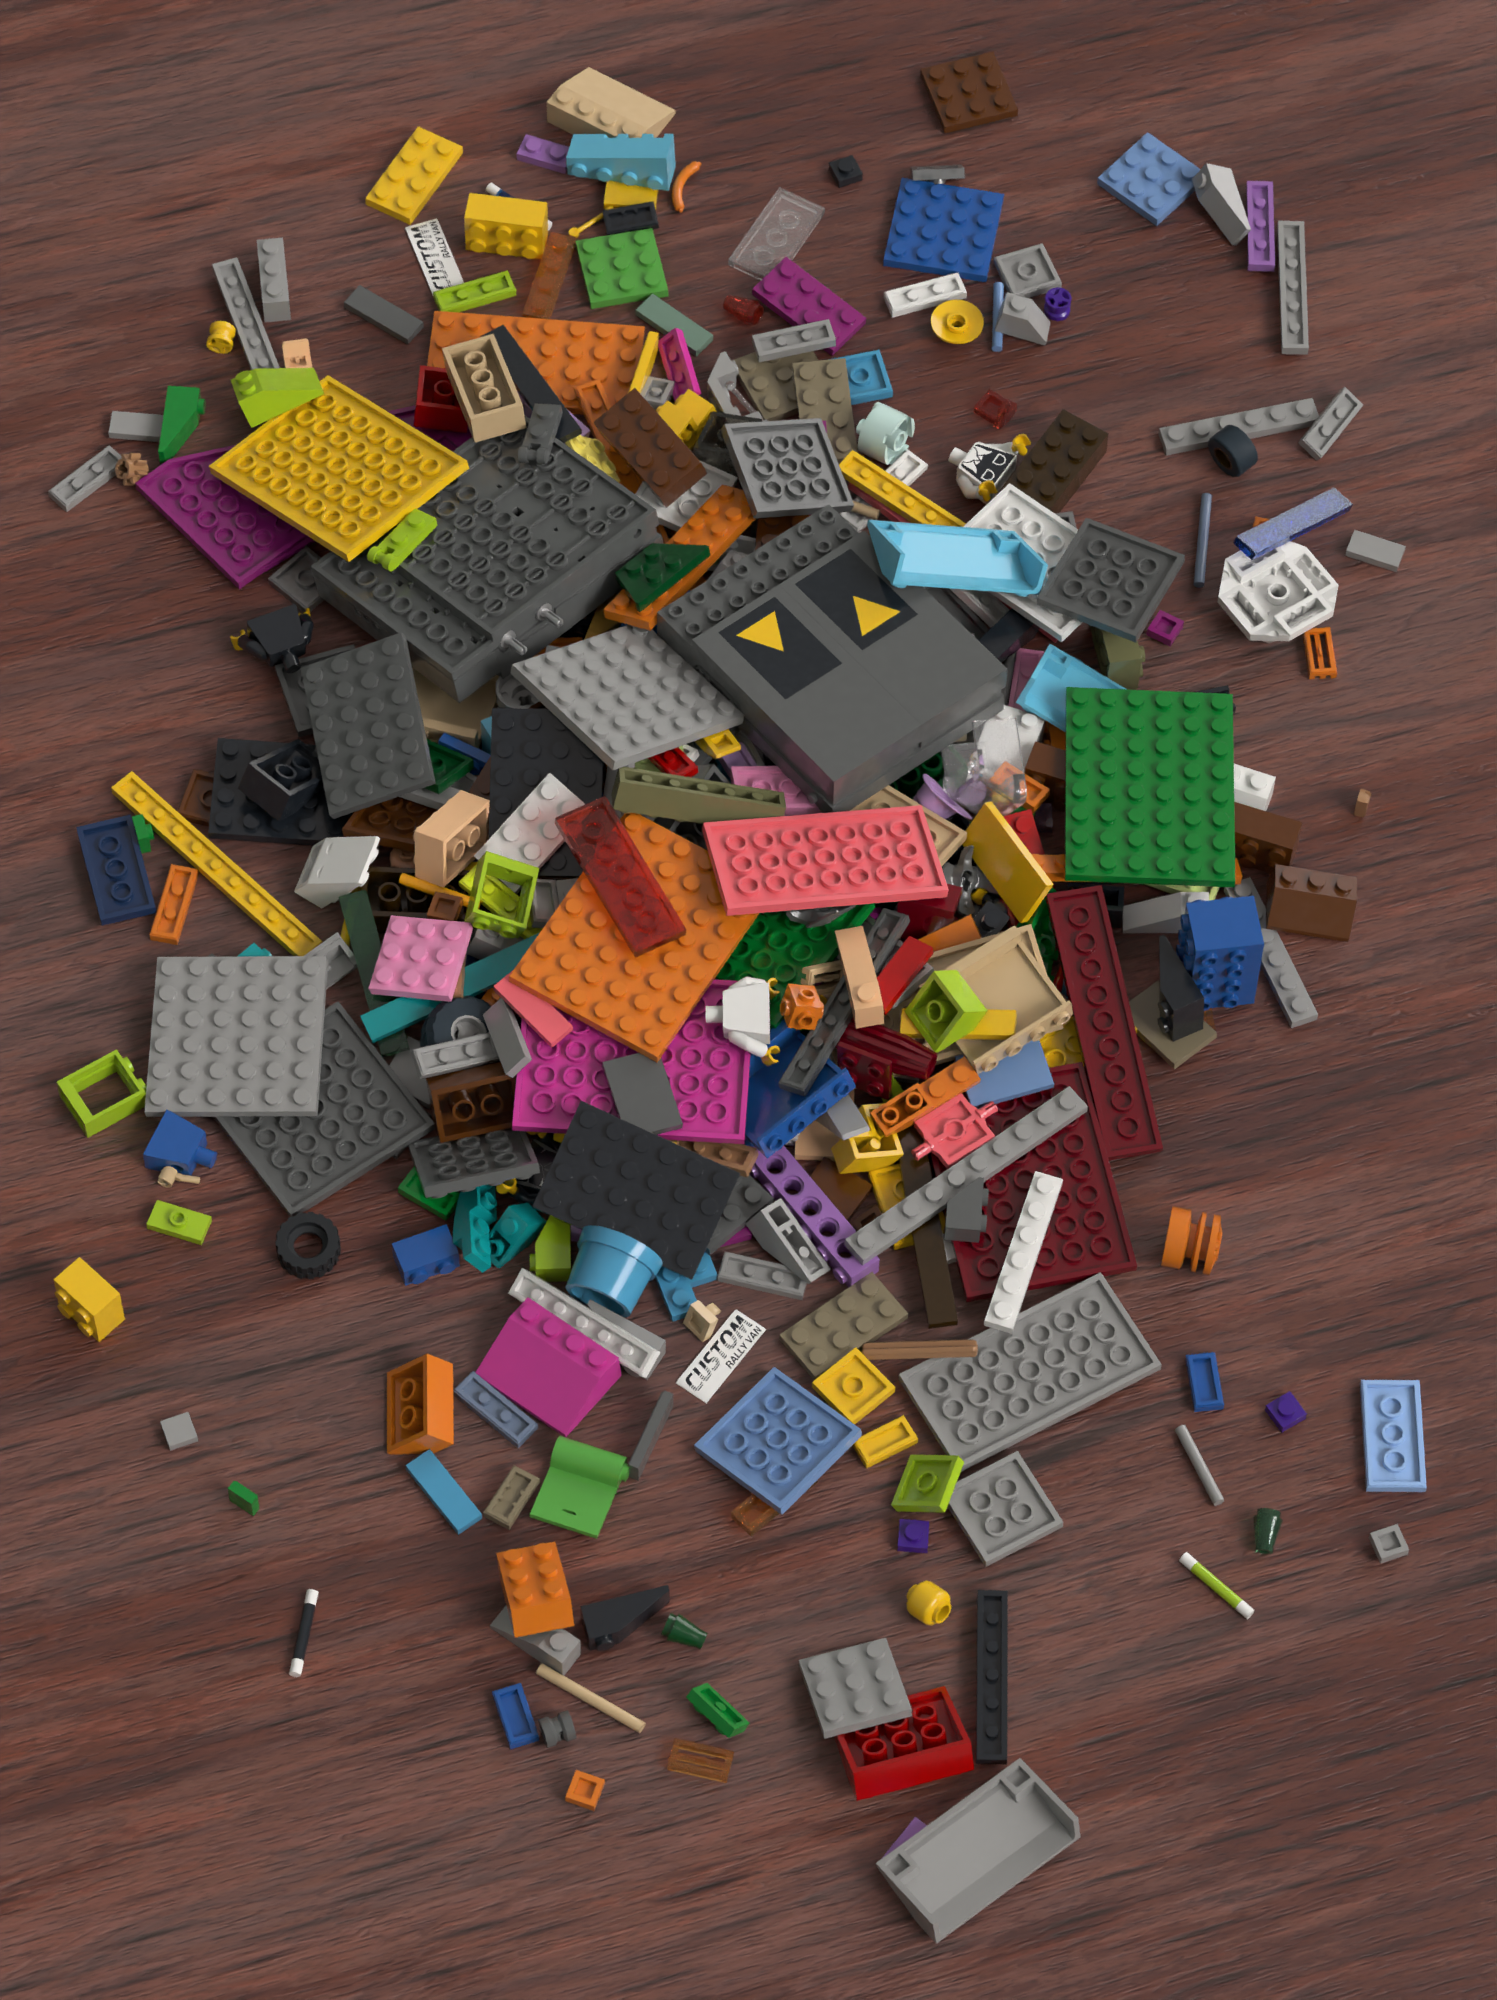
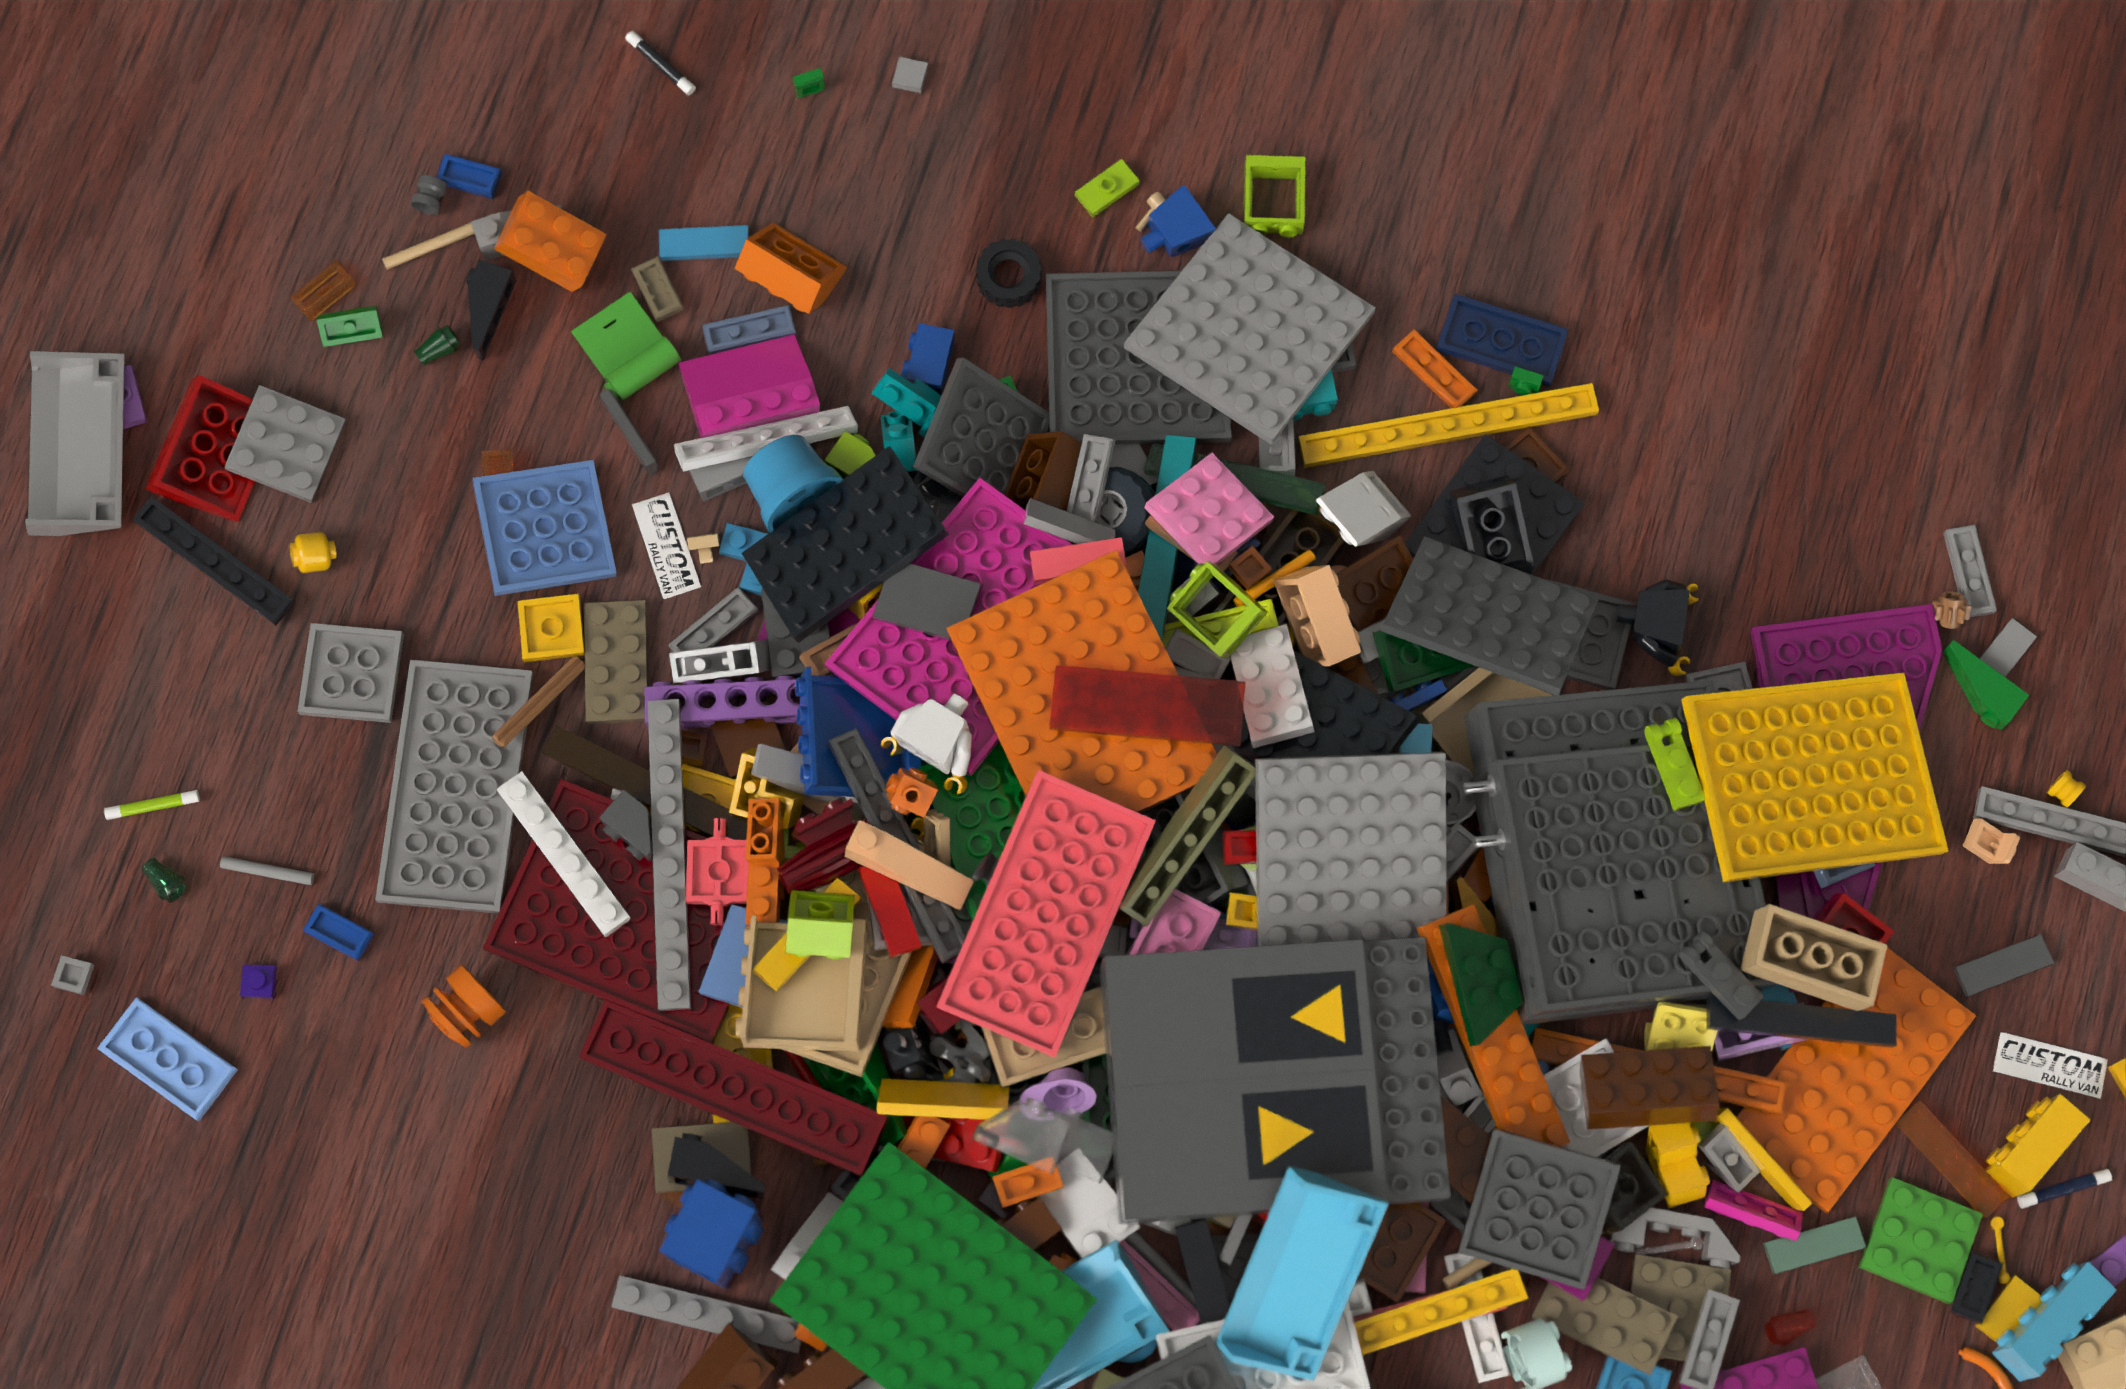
camera: 125 degrees right, 15 degrees up
(88, 1300) = (1073, 62): yellow brick -> none
(273, 391) = (1957, 787): lime slope -> none
(475, 293) = (1977, 1072): lime tile -> none
(585, 1790) = (363, 184): orange plate -> none
(885, 1441) = (485, 623): yellow tile -> none
(913, 1536) = (384, 587): dark purple plate -> none
(927, 1483) = (413, 621): lime plate -> none

